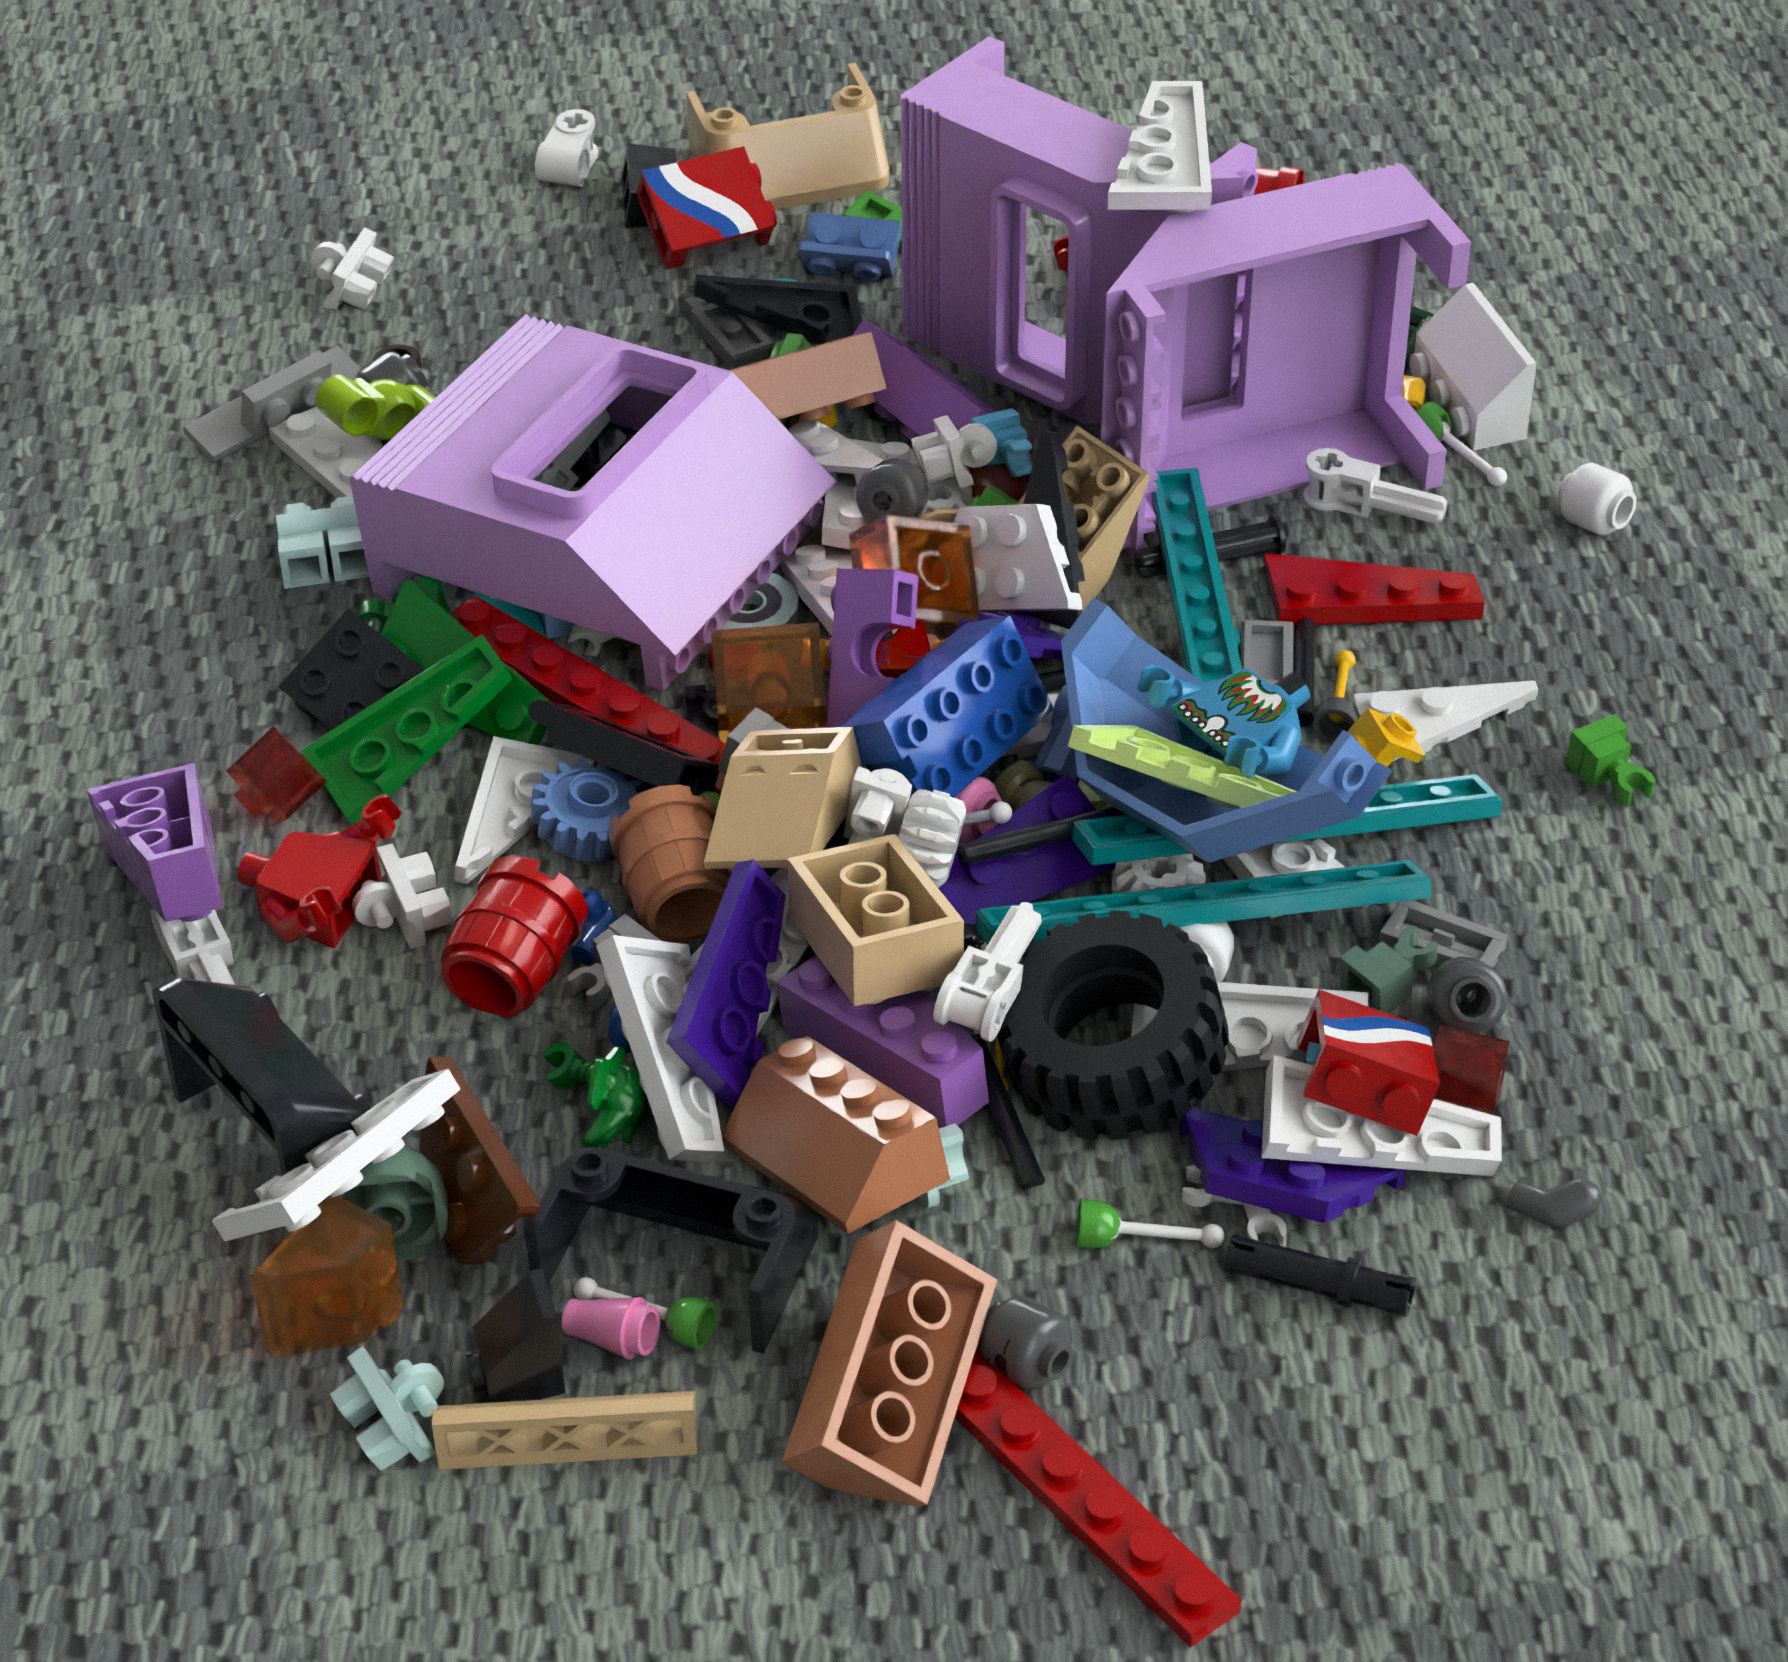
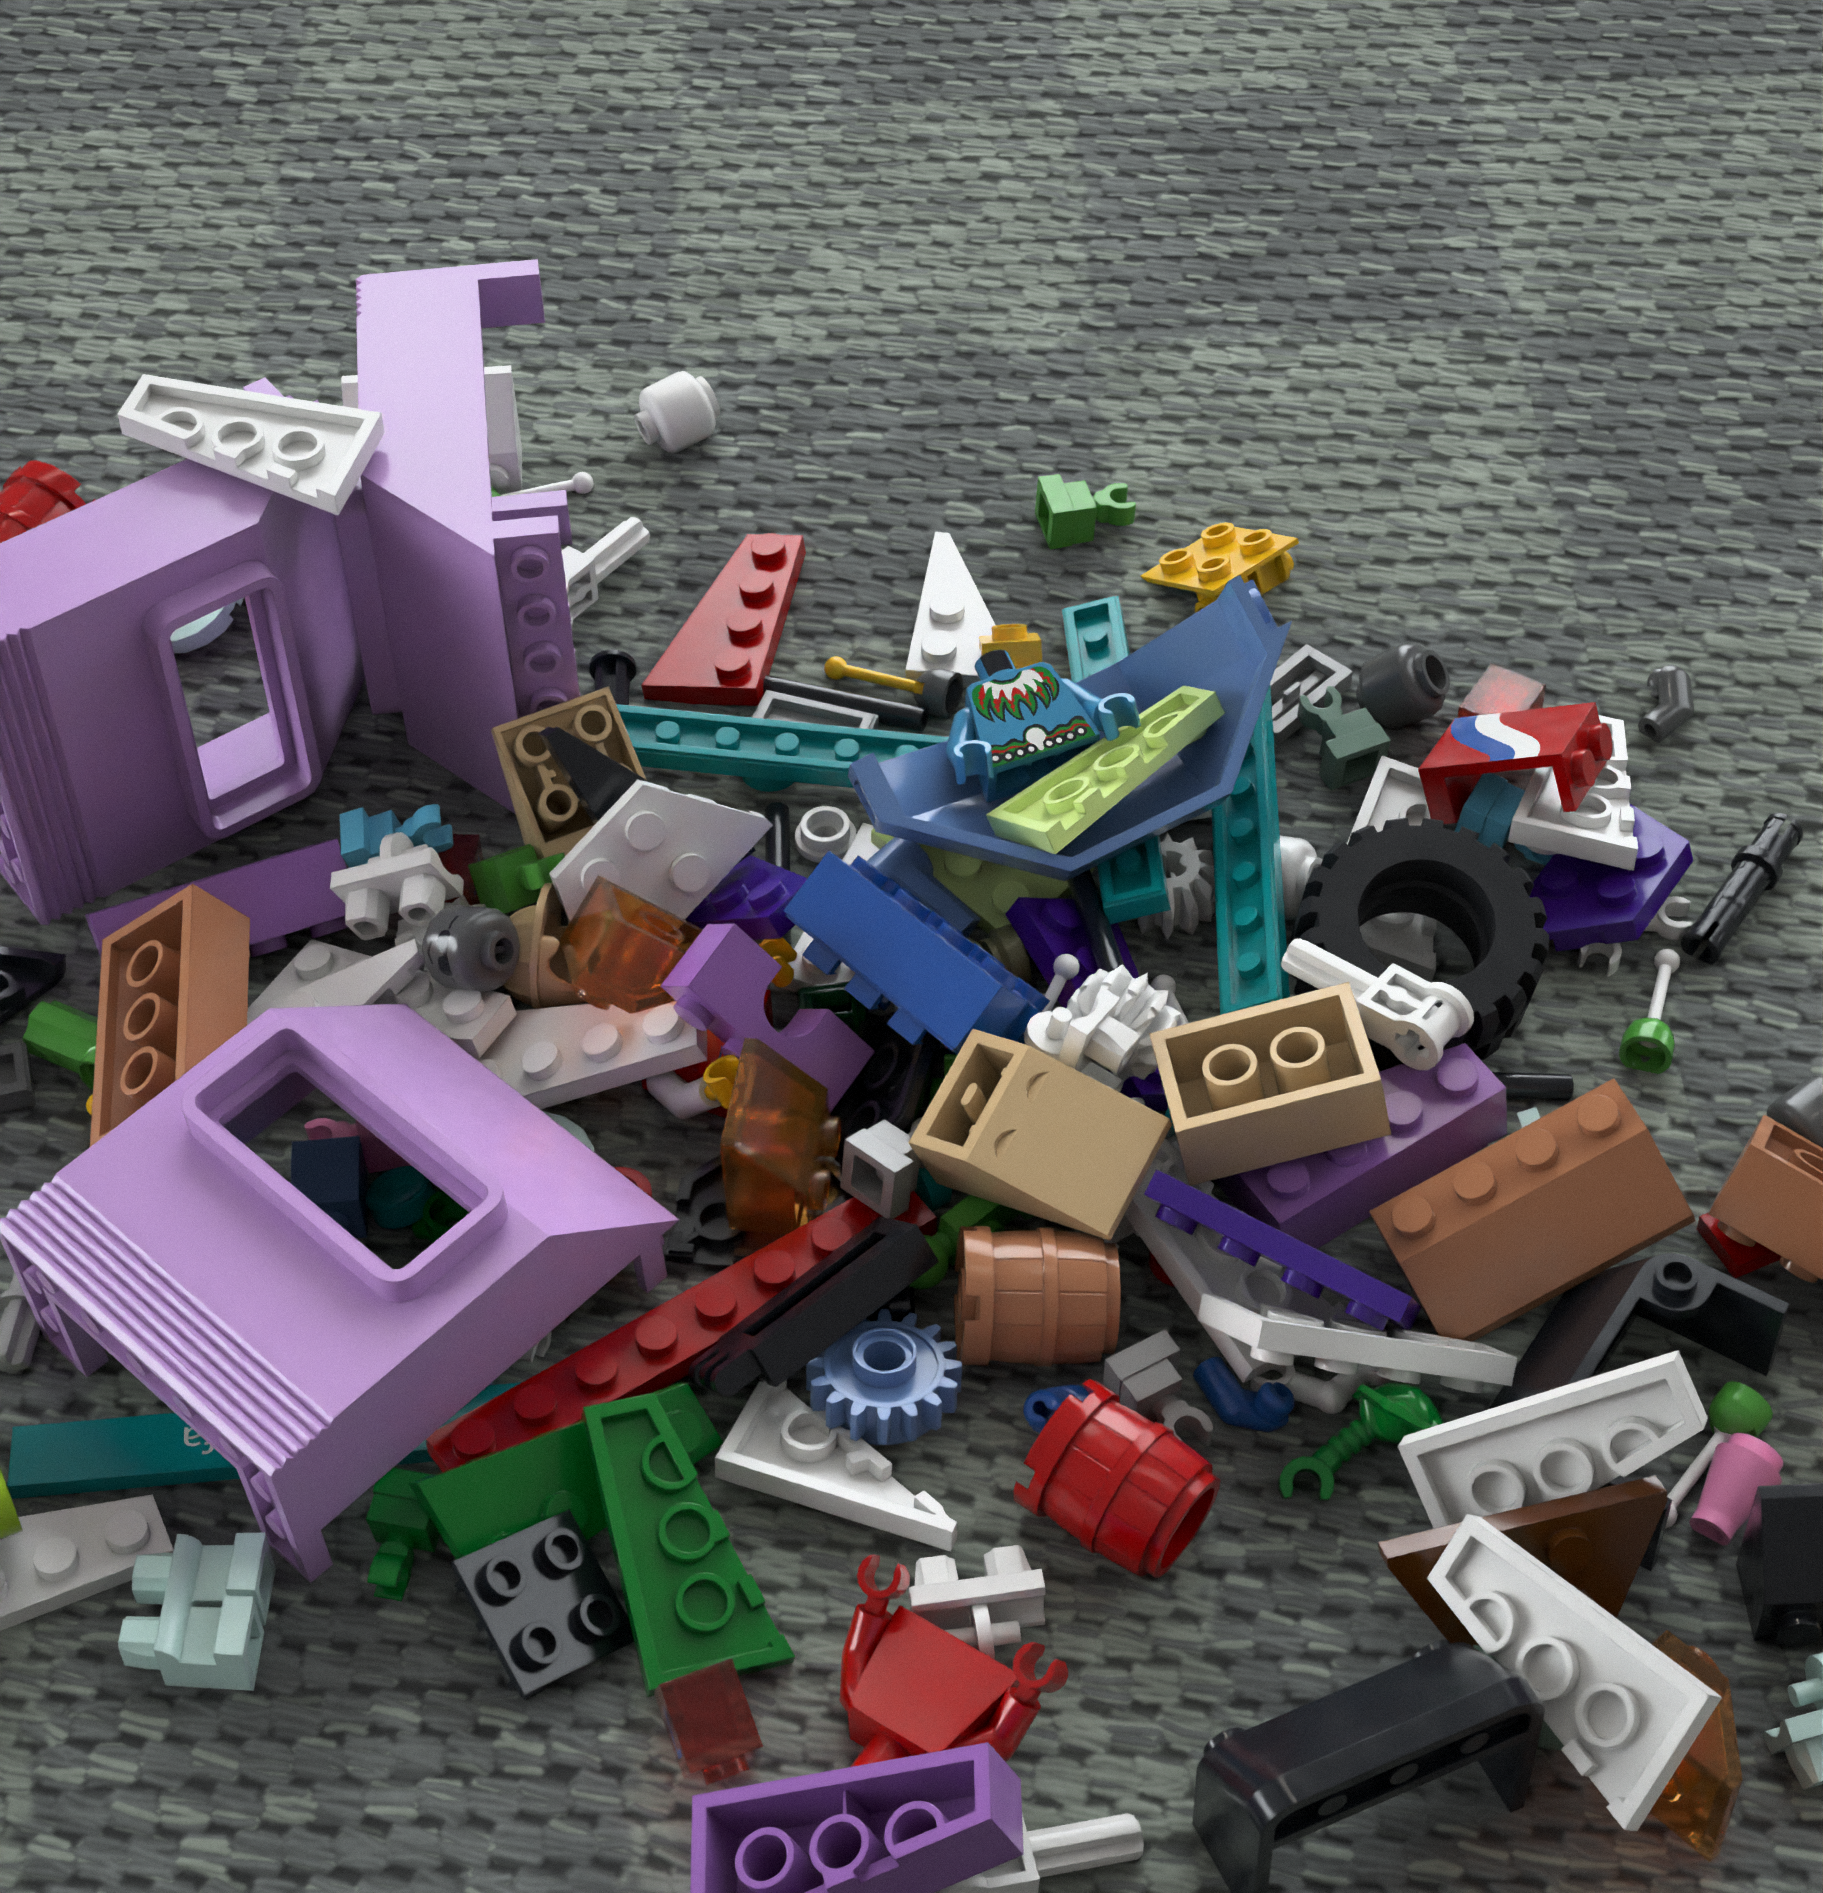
camera: 75 degrees left, 5 degrees up
(556, 1137) = (1553, 1441): none -> white wing
(1598, 869) = (1223, 555): none -> yellow hinge

